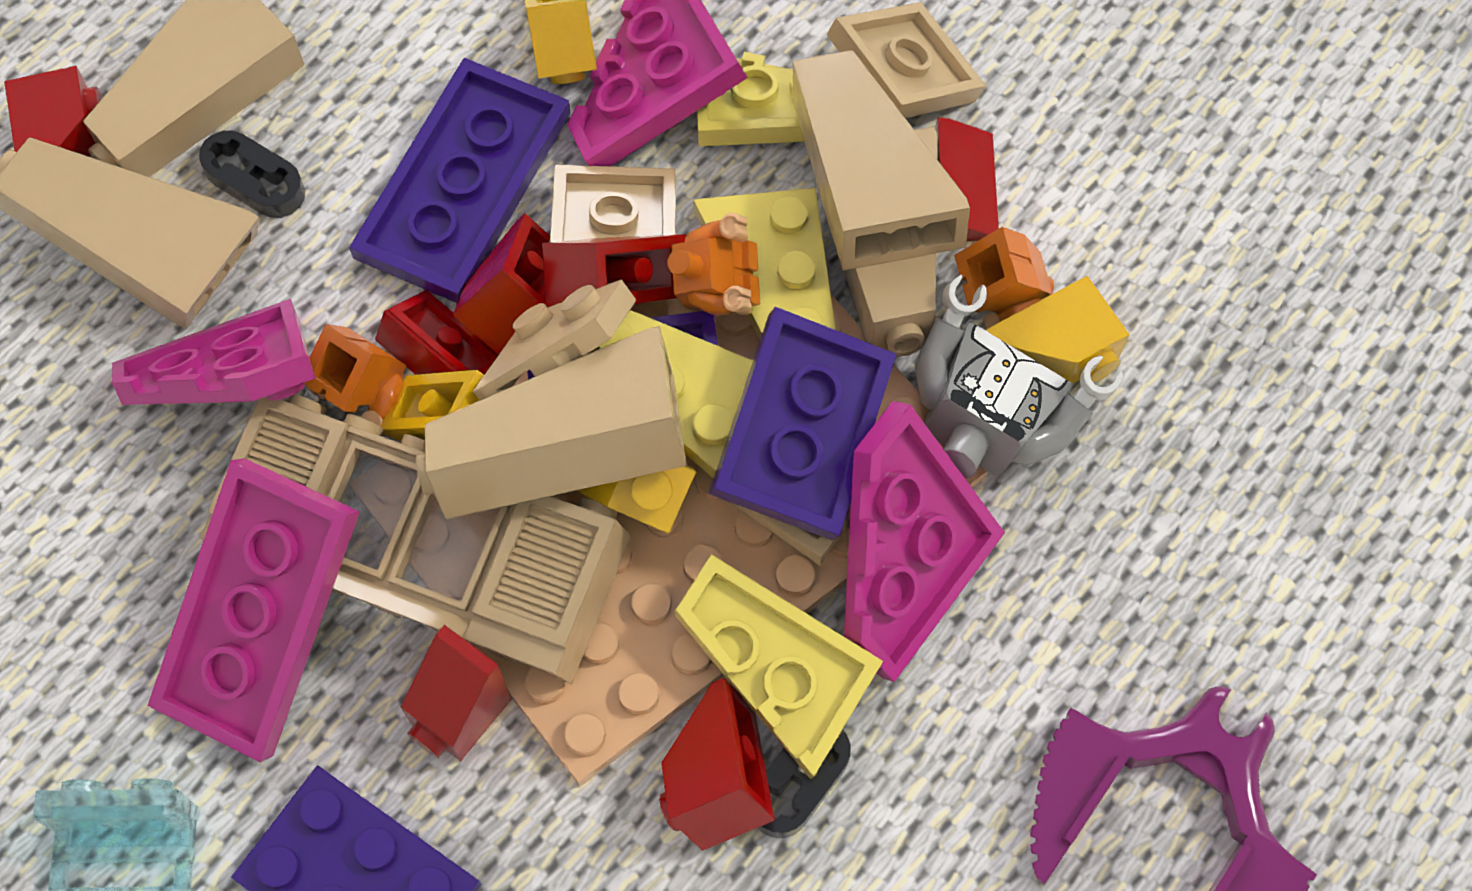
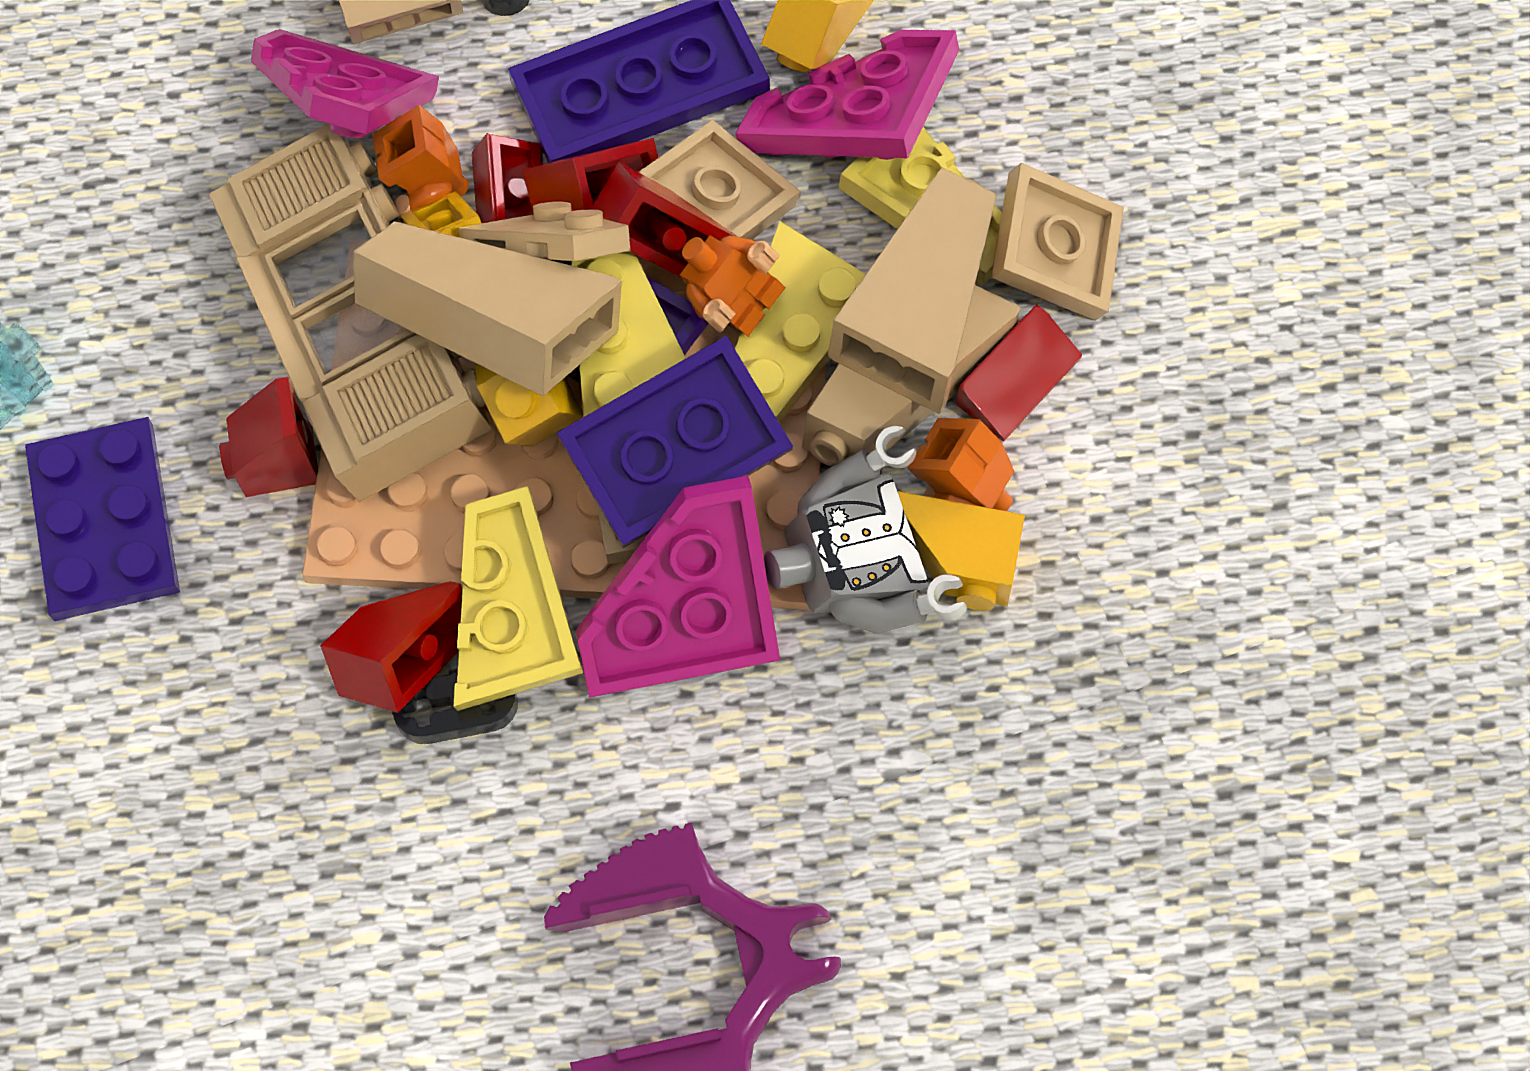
camera: 45 degrees right, 0 degrees up
(252, 608) = (192, 267): dark pink plate -> none

